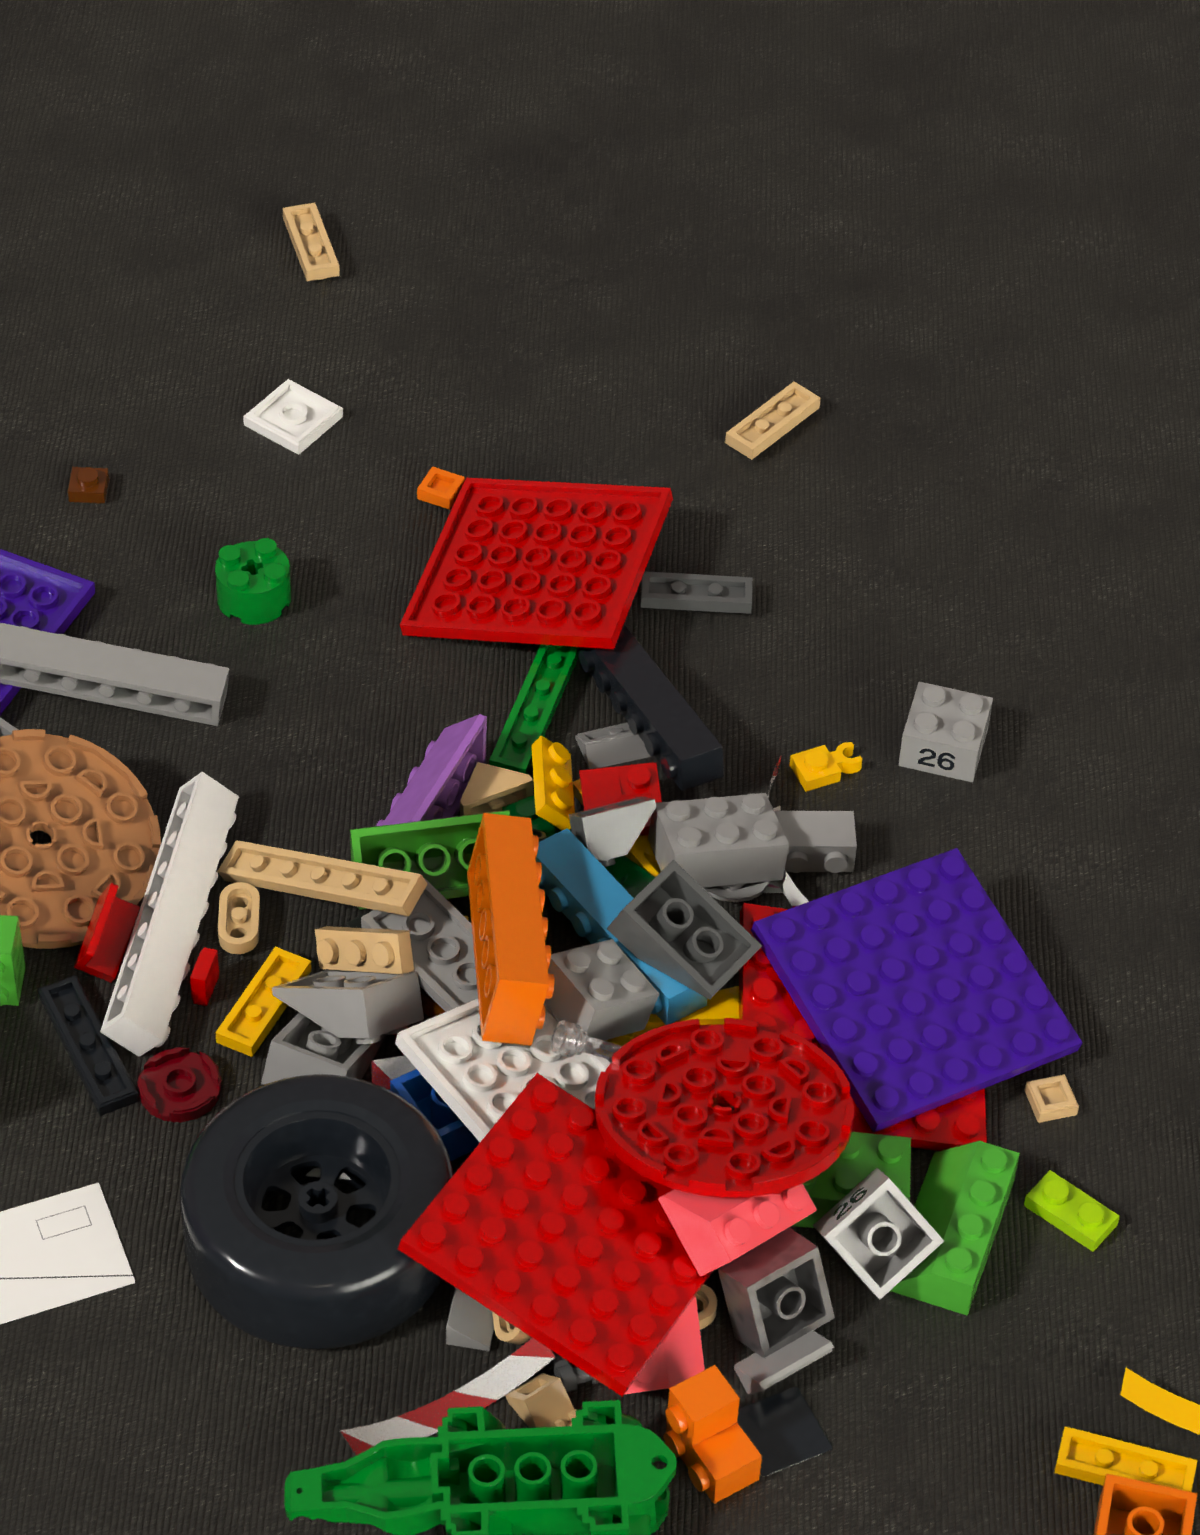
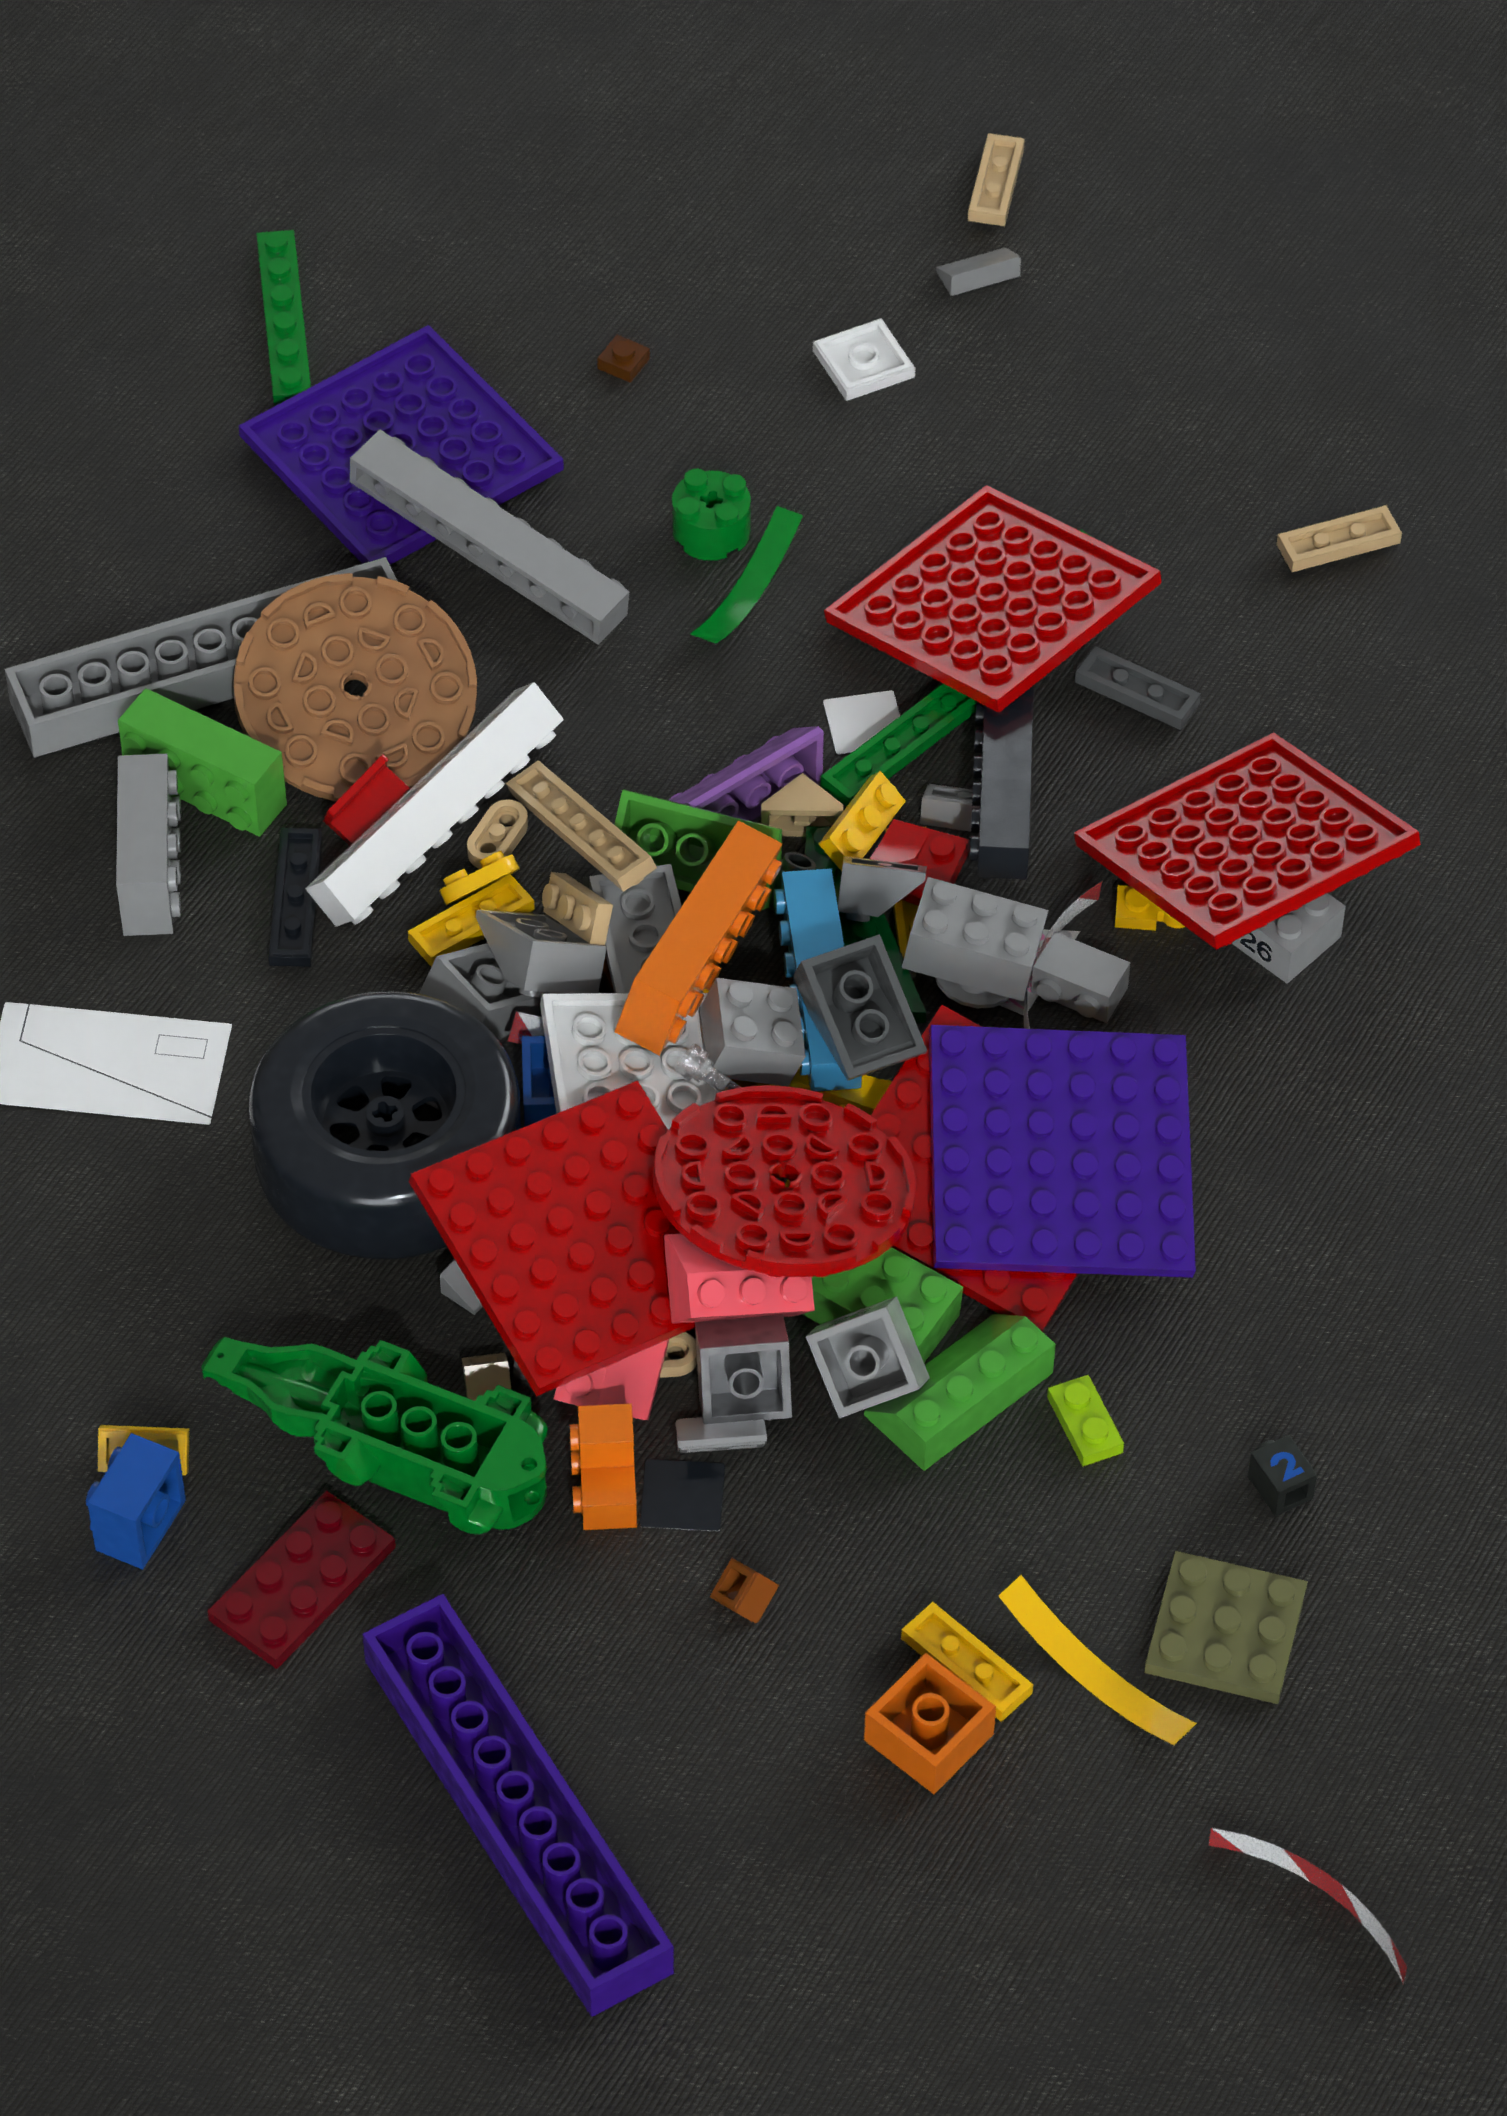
camera: 30 degrees right, 5 degrees up
(179, 1085) = (352, 964): dark red tile -> none
(204, 976) = (429, 876): red tile -> none
(239, 972) = (493, 869): none -> yellow plate
(316, 619) = (754, 578): none -> green sticker
(343, 315) = (979, 271): none -> light grey slope
(440, 487) = (955, 485): orange plate -> none
(477, 1393) = (423, 1347): clear sticker -> none
(485, 696) = (859, 718): none -> white sticker
(880, 676) = (1246, 840): none -> red plate
(895, 1492) = (744, 1591): none -> dark orange slope
(1051, 1098) = (1141, 1311): tan tile -> none

